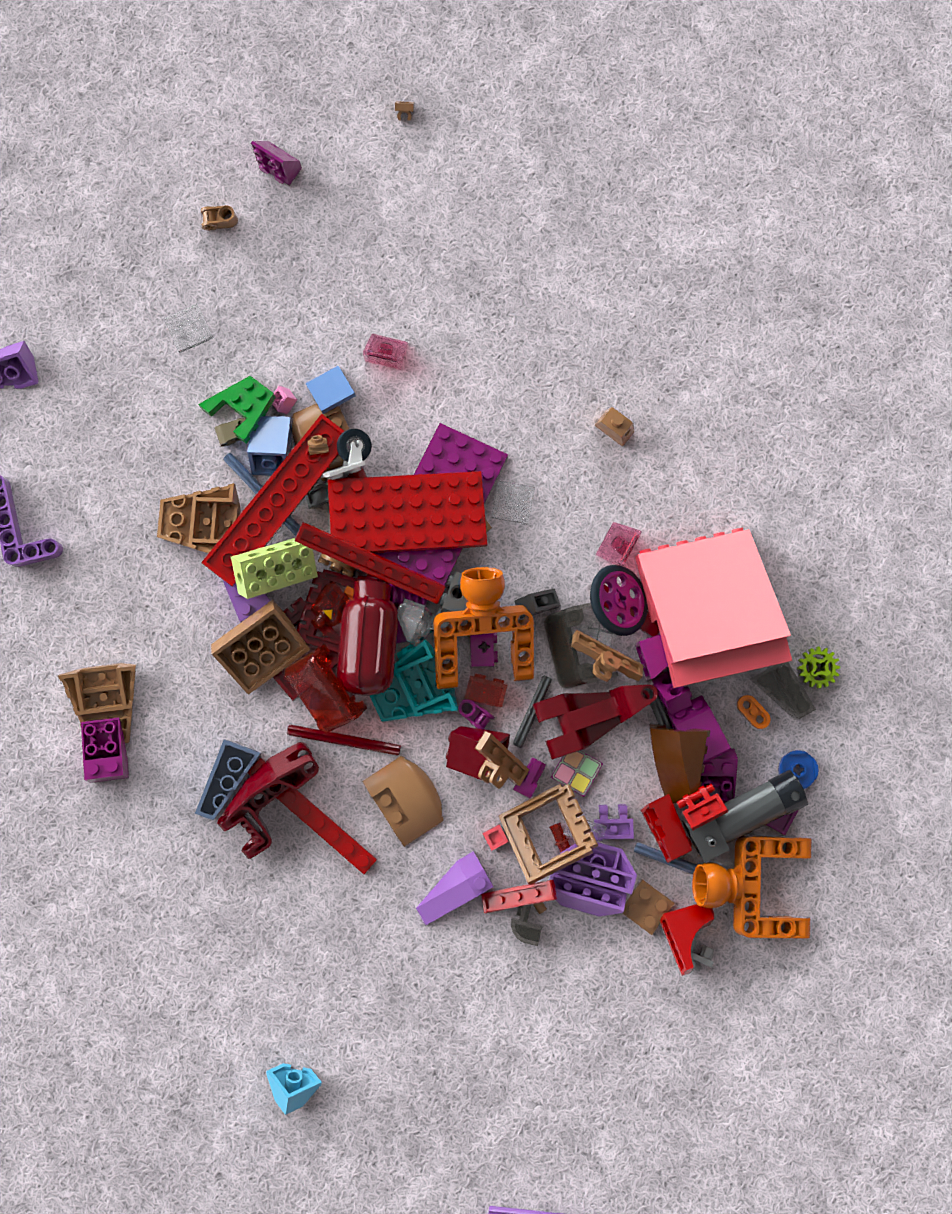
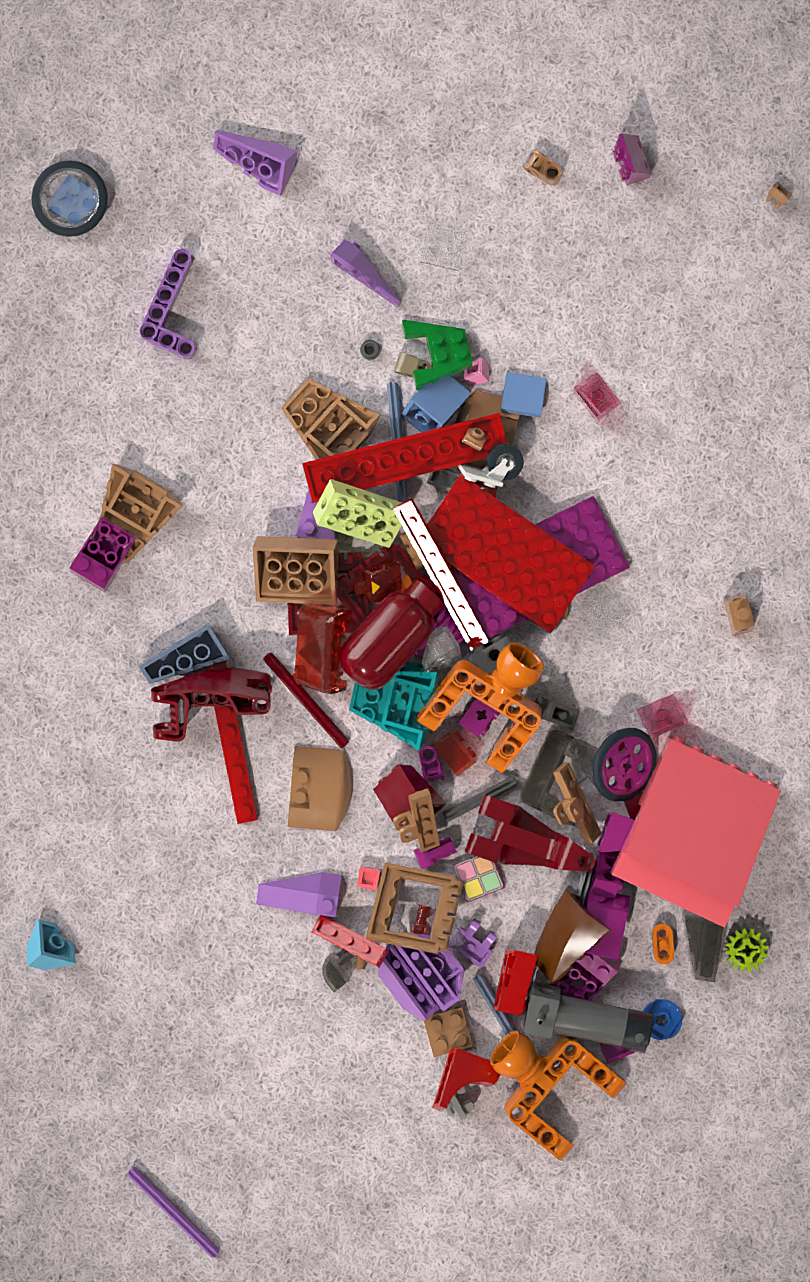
camera: 40 degrees right, 5 degrees up
(131, 389) = (355, 263): none -> medium lavender wedge
(191, 438) = (370, 343): none -> dark grey plate
(704, 811) = (555, 992): red plate -> none

